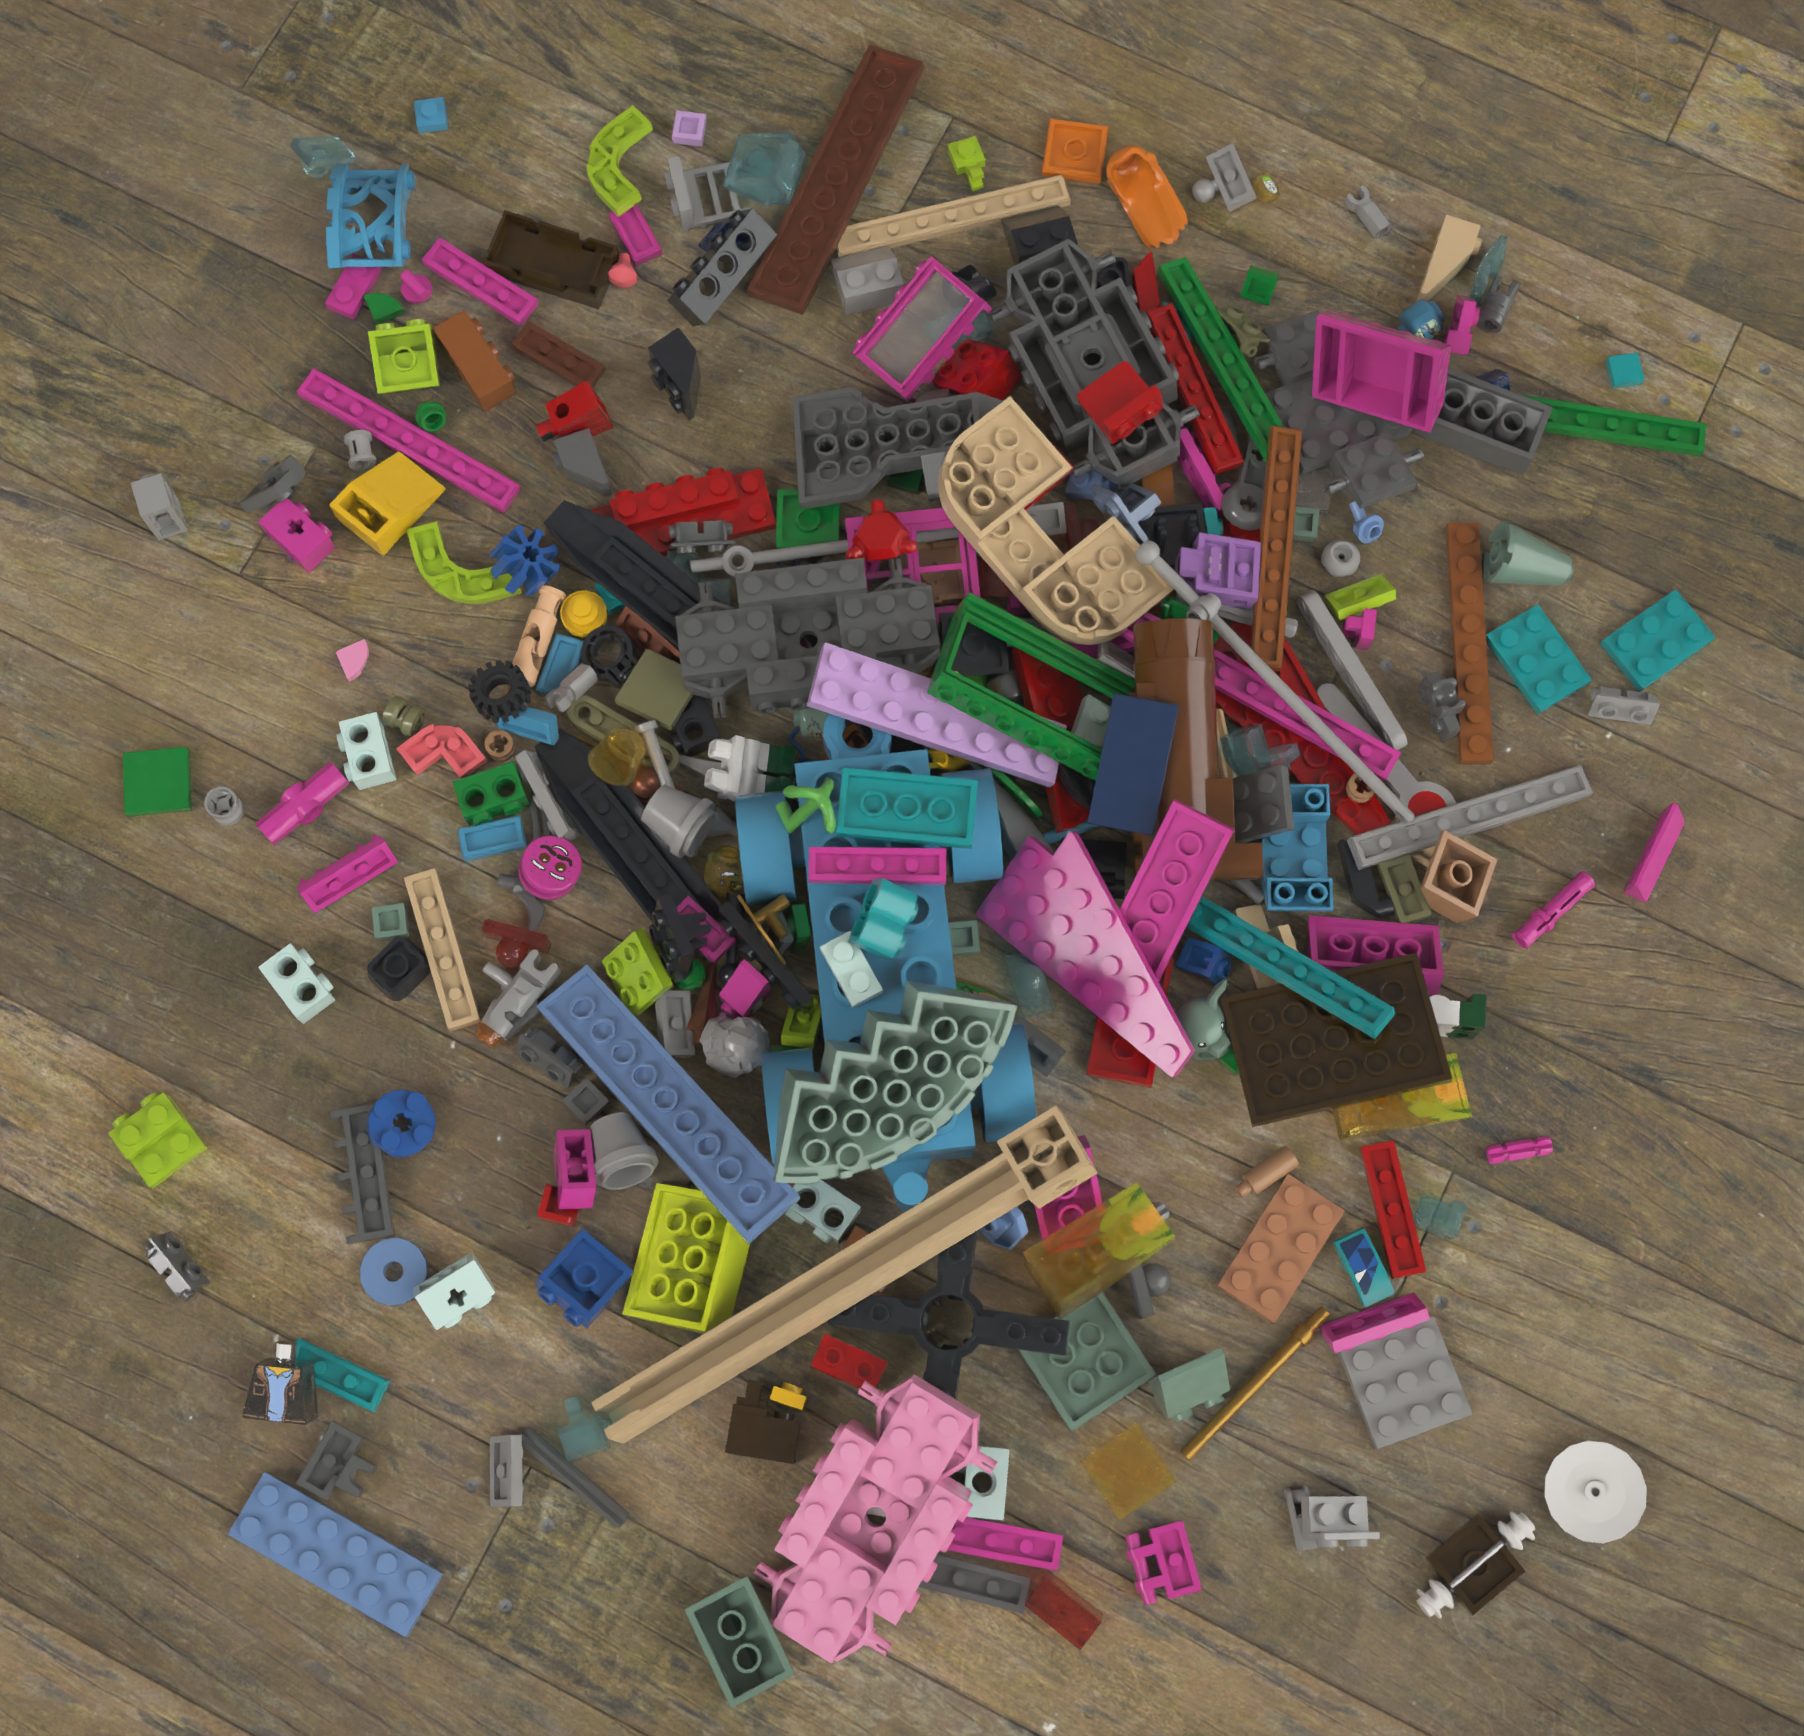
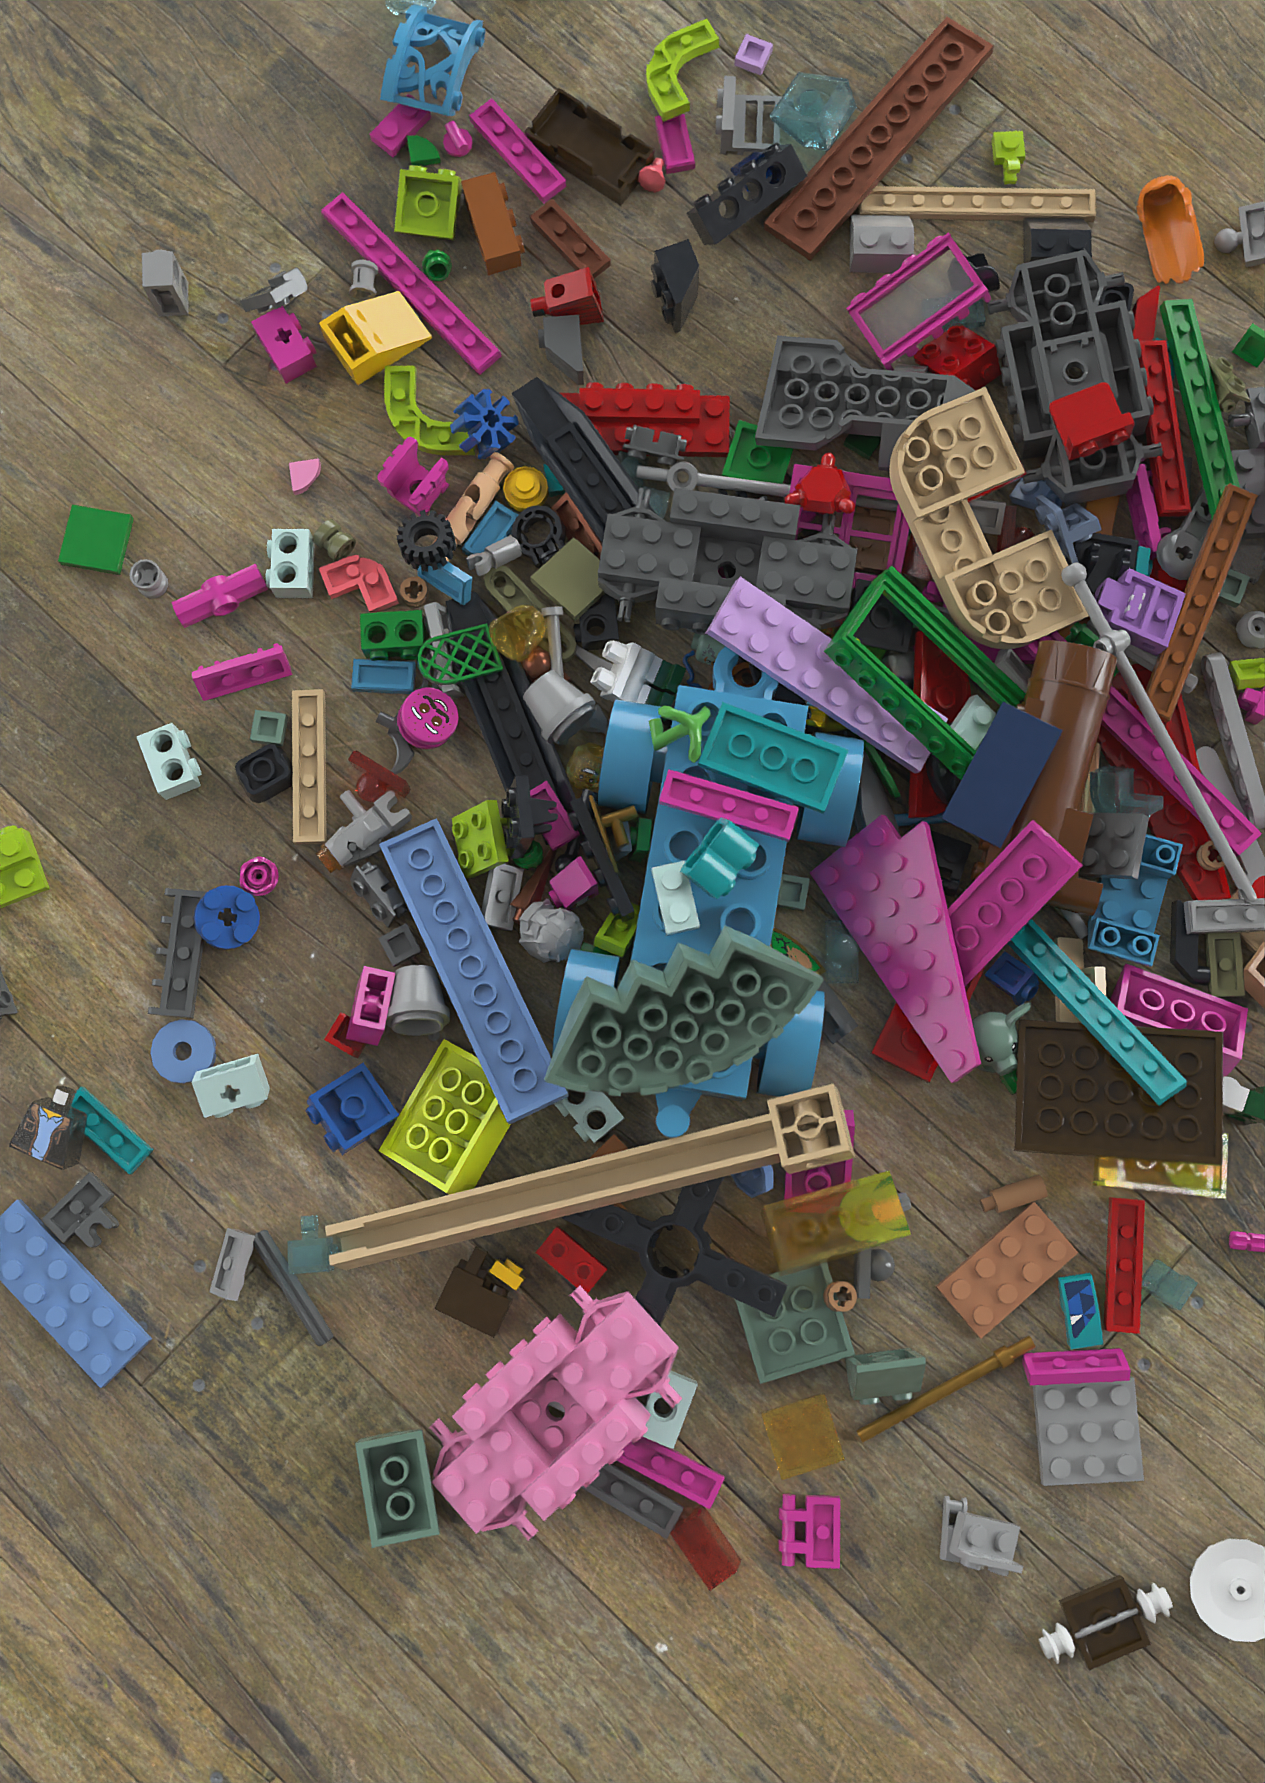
camera: 20 degrees right, 5 degrees up
(414, 1066) = (250, 871): none -> dark pink plate
(456, 629) = (404, 471): none -> dark pink piece
(606, 796) = (457, 678): none -> green window
(1075, 151) = (1114, 170): orange tile -> none
(1119, 1330) = (844, 1305): none -> medium nougat bush

